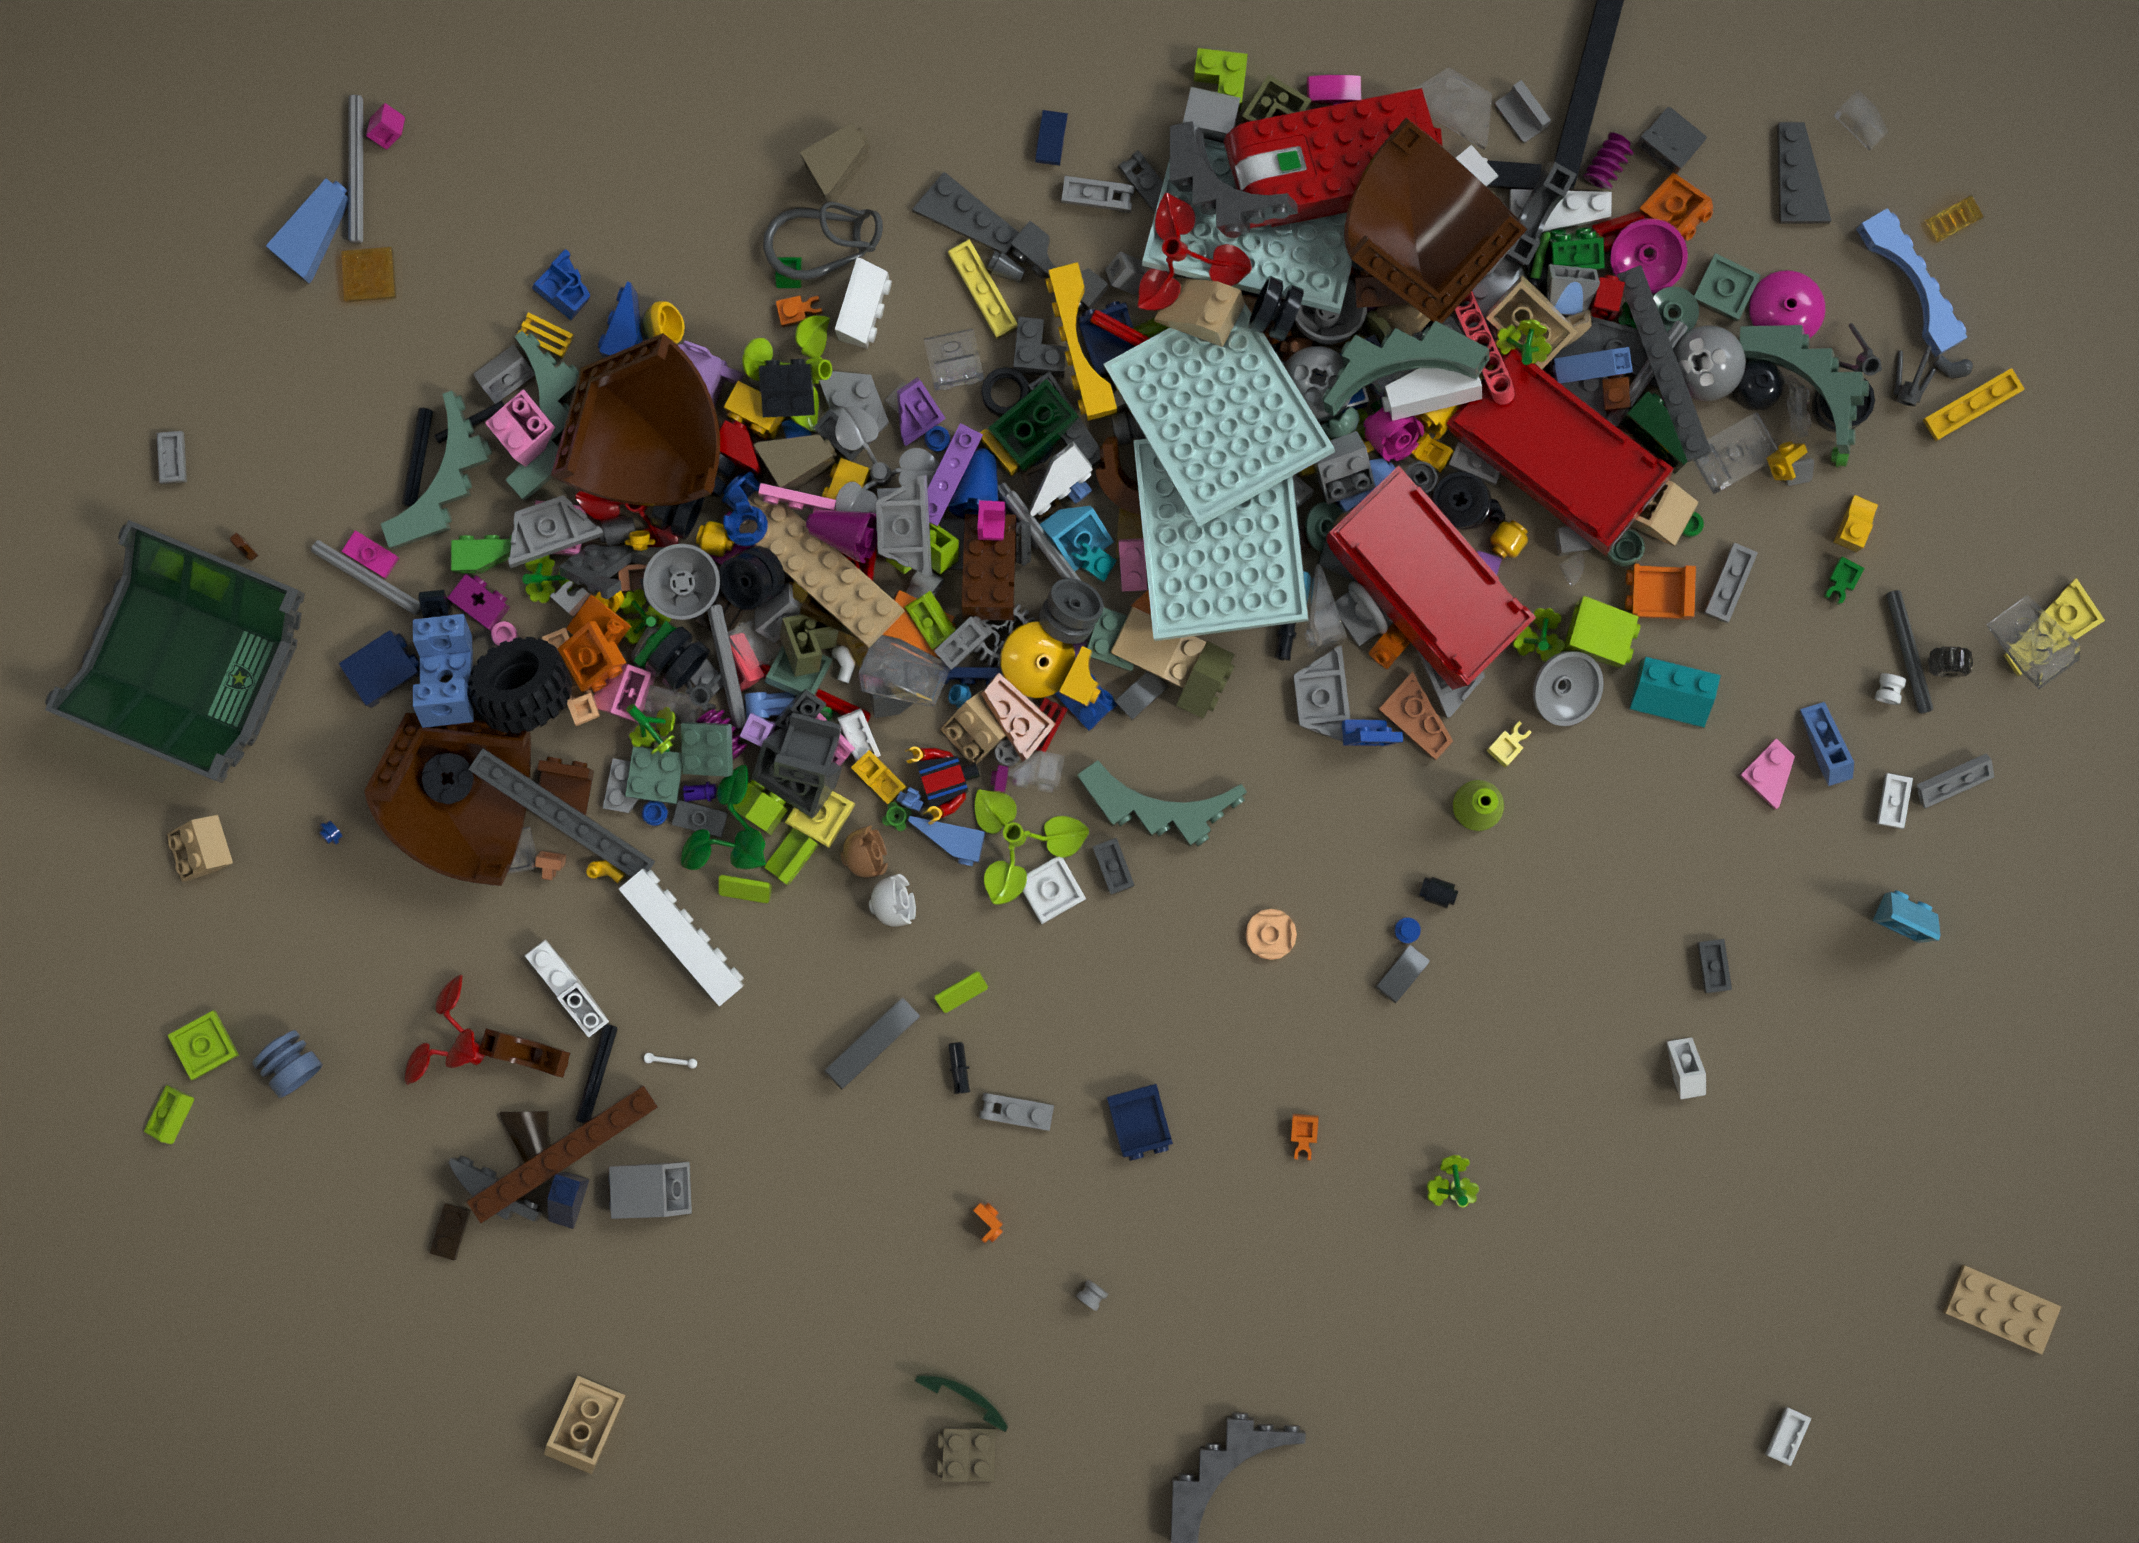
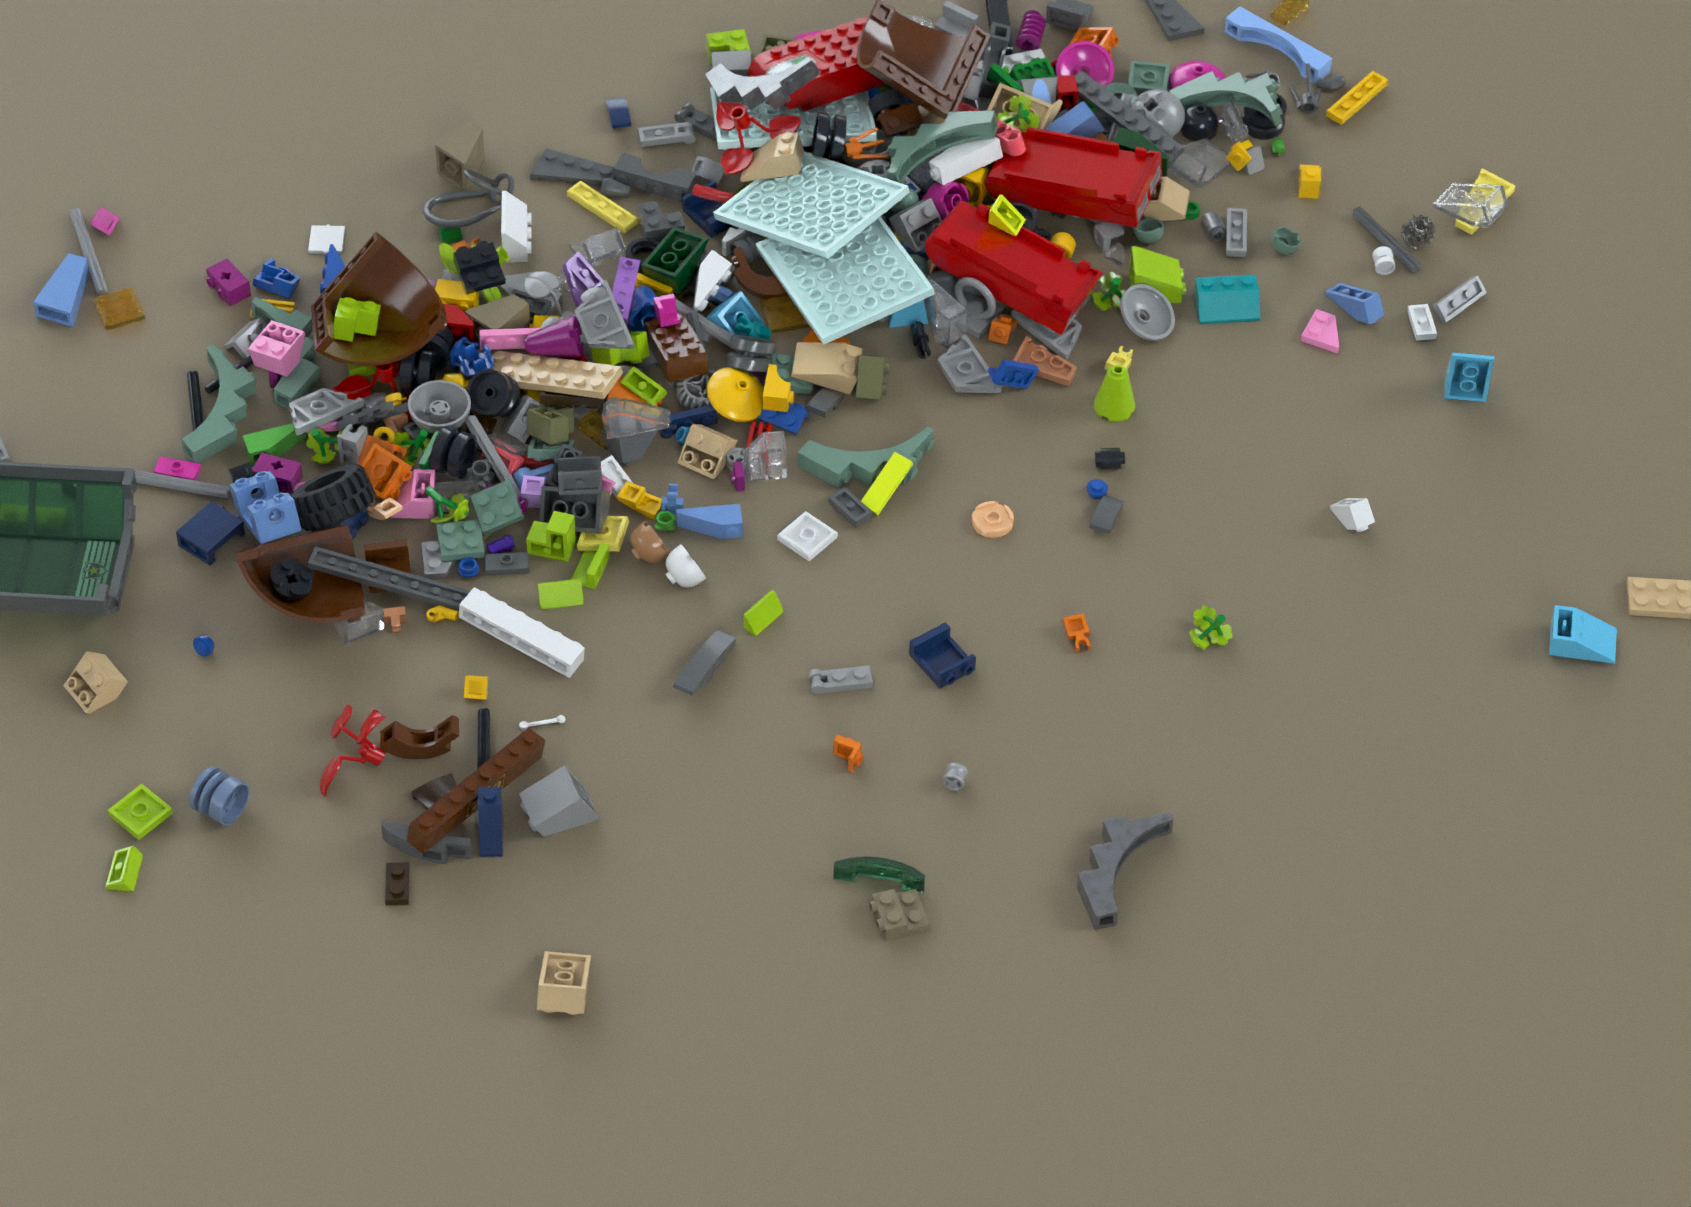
camera: 25 degrees left, 35 degrees down
(496, 264) = (228, 282): none -> magenta brick
(567, 988) = (436, 693): white slope -> none
(610, 993) = (476, 687): none -> yellow plate
(618, 415) = (354, 318): none -> lime brick
(640, 236) = (323, 236): none -> white piece
(748, 844) = (550, 559): green plant -> none
(846, 662) = (586, 439): white arm -> none
(942, 779) = (693, 483): torso -> none
(959, 1068) = (782, 662): black axle -> none
(963, 642) = (675, 389): light grey hinge -> none
(993, 812) = (771, 535): lime plant -> none
(1017, 715) = (732, 425): wing -> none
(1095, 392) = (714, 226): yellow arch -> none
(1133, 565) = (785, 326): bright pink plate -> none
(1164, 852) = (886, 483): none -> neon yellow tile
(1305, 325) = (853, 147): none -> orange plant
(1440, 522) = (1005, 216): none -> neon yellow slope
(1533, 268) = (999, 76): none -> green plate
(1661, 592) = (1191, 250): orange panel -> none
(1706, 565) = (1213, 226): none -> flat silver brick
(1714, 966) = (1341, 449): dark grey plate -> none
(1783, 620) = (1285, 241): none -> sand green hair
(1788, 1436) = (1553, 718): white plate -> none
(1845, 577) = (1317, 210): green plate -> none
(1871, 1337) = (1581, 636): none -> medium azure slope

